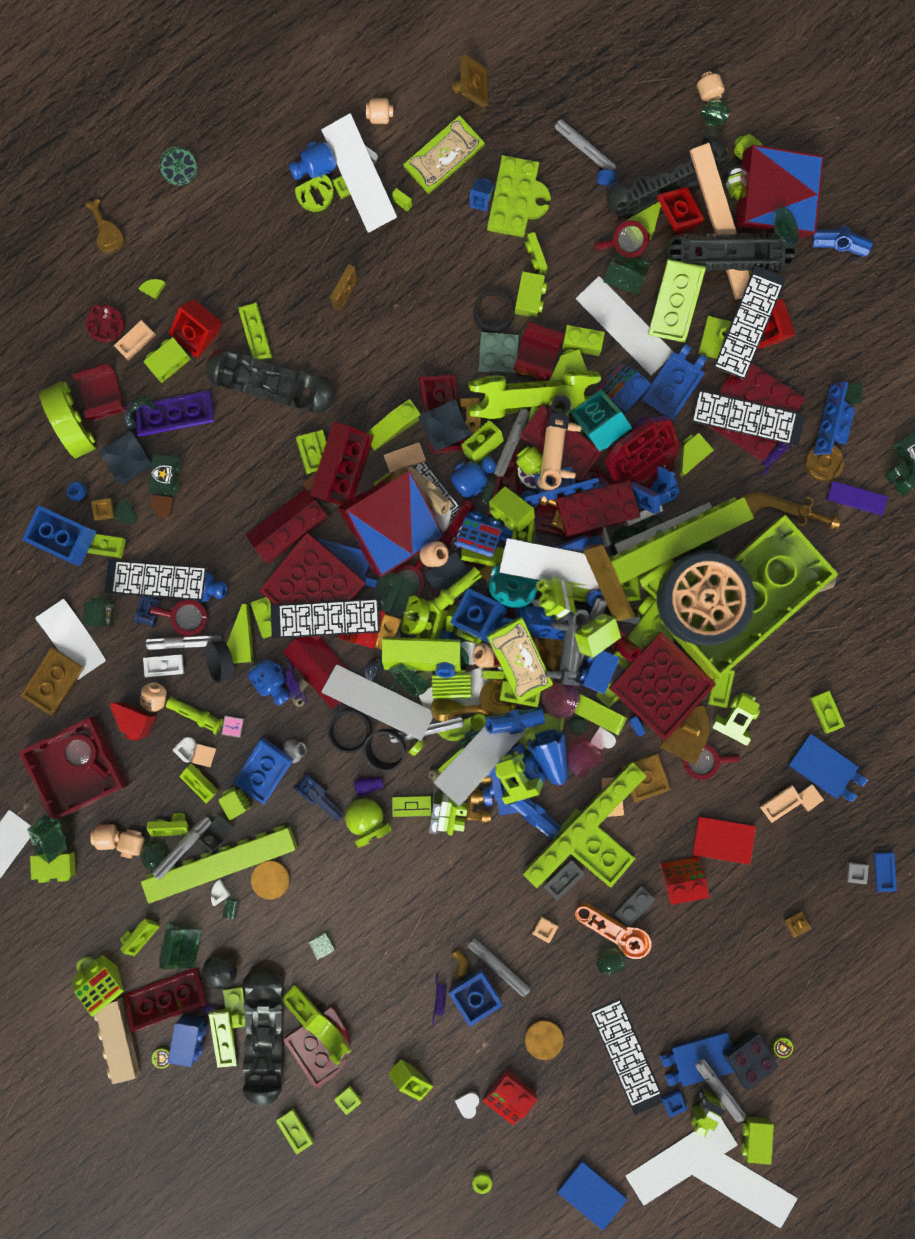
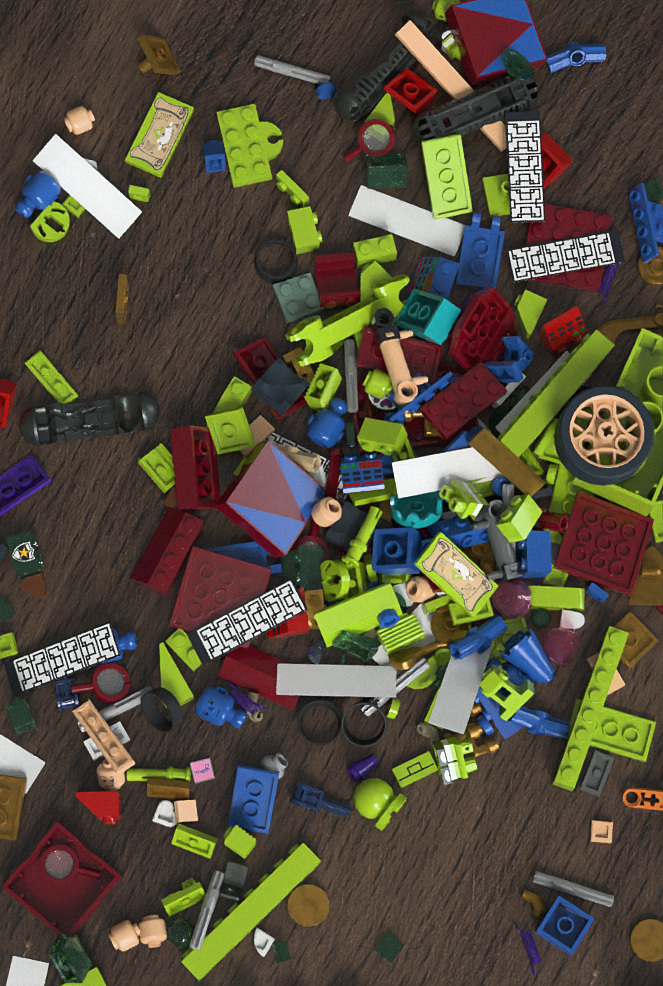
camera: 30 degrees left, 10 degrees down
(159, 663) = (103, 737): none -> light nougat tile
(196, 730) = (168, 789): none -> pearl gold tile
(385, 445) = (230, 430): none -> lime tile
(714, 485) = (563, 332): none -> red slope

